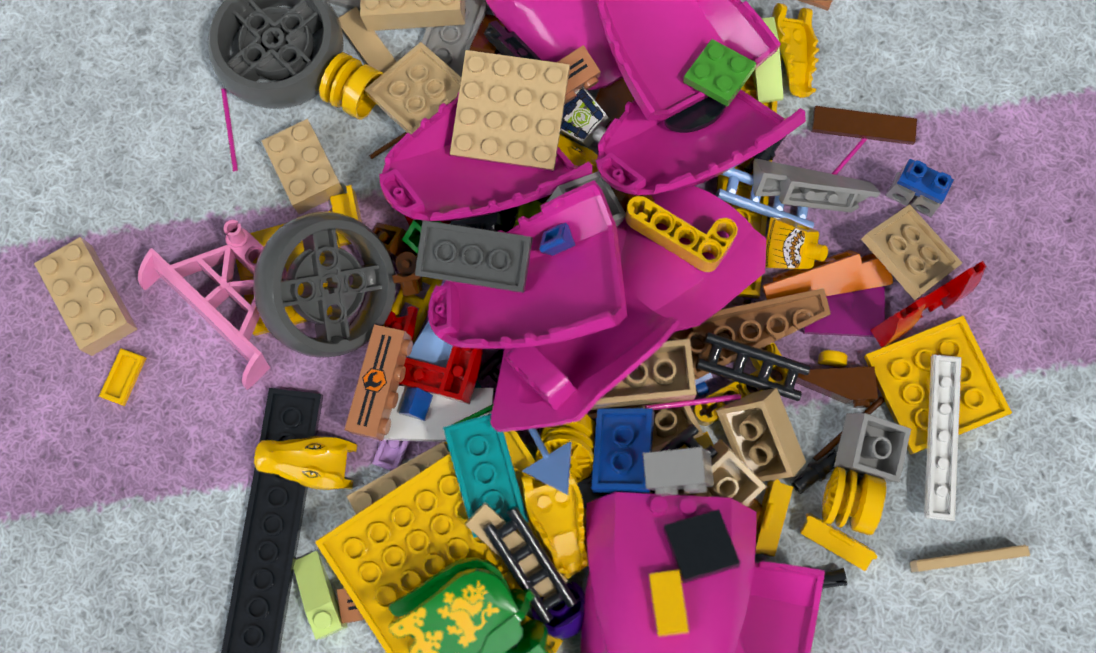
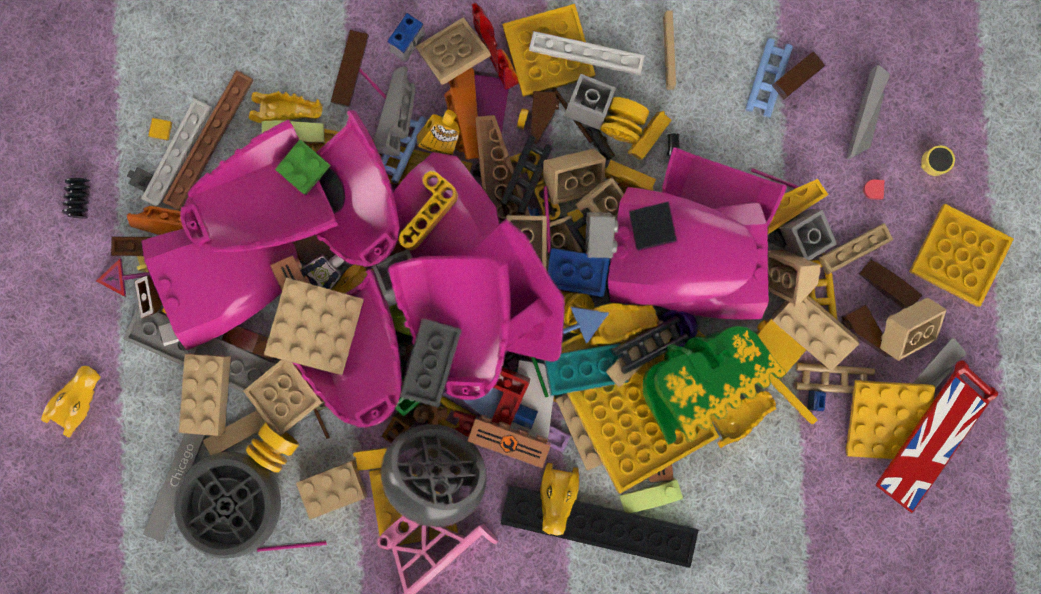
camera: 90 degrees left, 10 degrees up
(508, 43) = (258, 320): black hinge -> none
(556, 240) = (425, 301): blue slope -> none
(668, 603) = (690, 252): yellow tile -> none

